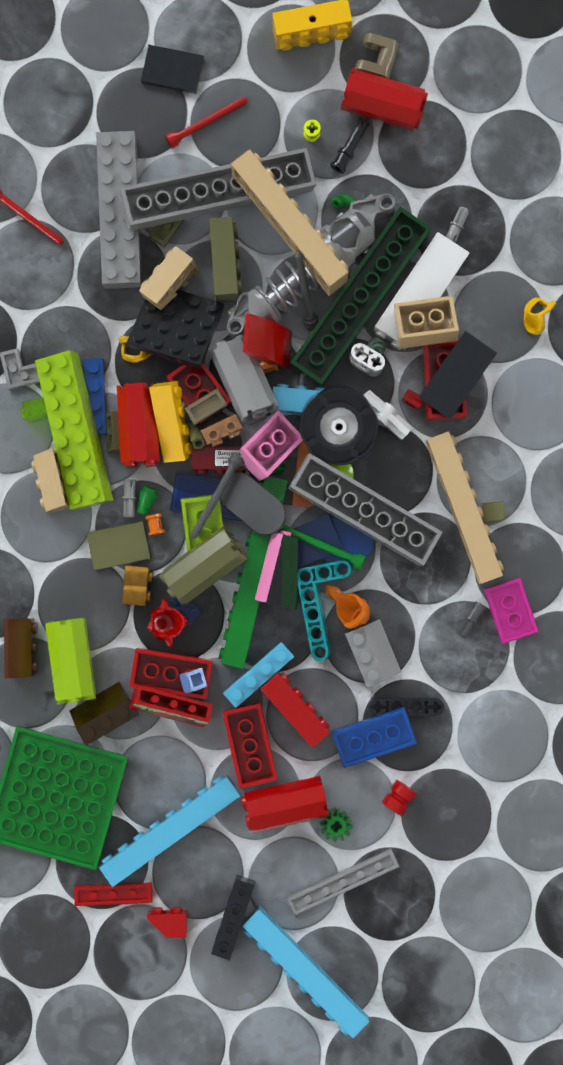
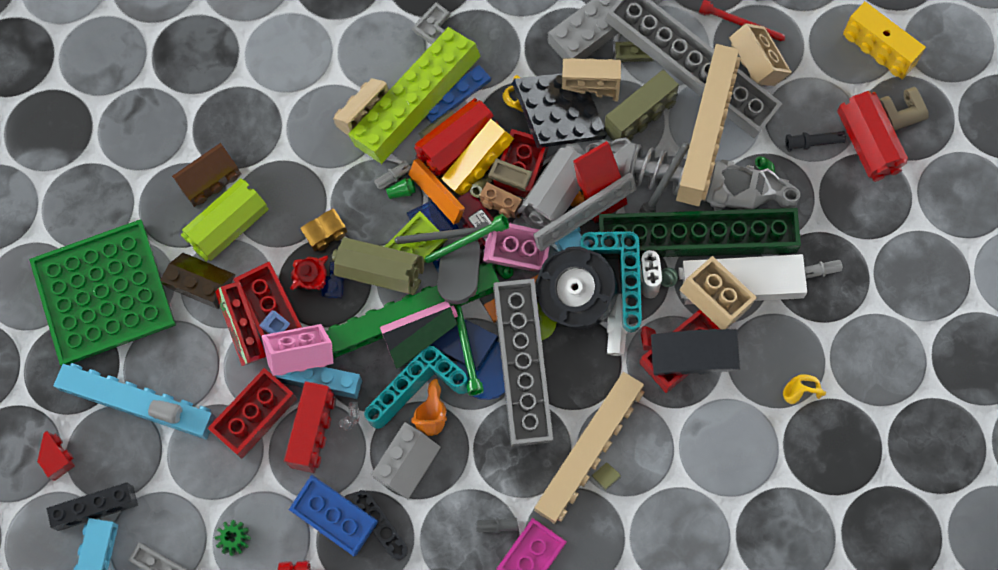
camera: 65 degrees right, 15 degrees down
(34, 410) = (408, 55): clear neon green brick -> none
(107, 895) = (49, 395): red tile -> none
(118, 545) = (347, 195): olive tile -> none
(155, 524) = (385, 209): orange bush -> none
(172, 474) = (436, 191): none -> orange tile
(201, 812) = (165, 411): none -> light grey piece
(229, 676) = (298, 349): none -> bright pink slope
(247, 447) = (499, 223): none -> green piece
(250, 131) = (760, 55): none -> tan brick
(282, 372) = (584, 212): none -> light grey tile
(285, 805) = (220, 478): red brick -> none
(307, 126) = (802, 104): neon yellow bush -> none
(308, 671) = (352, 419): none -> clear arm
(354, 378) = (626, 271): none -> teal beam

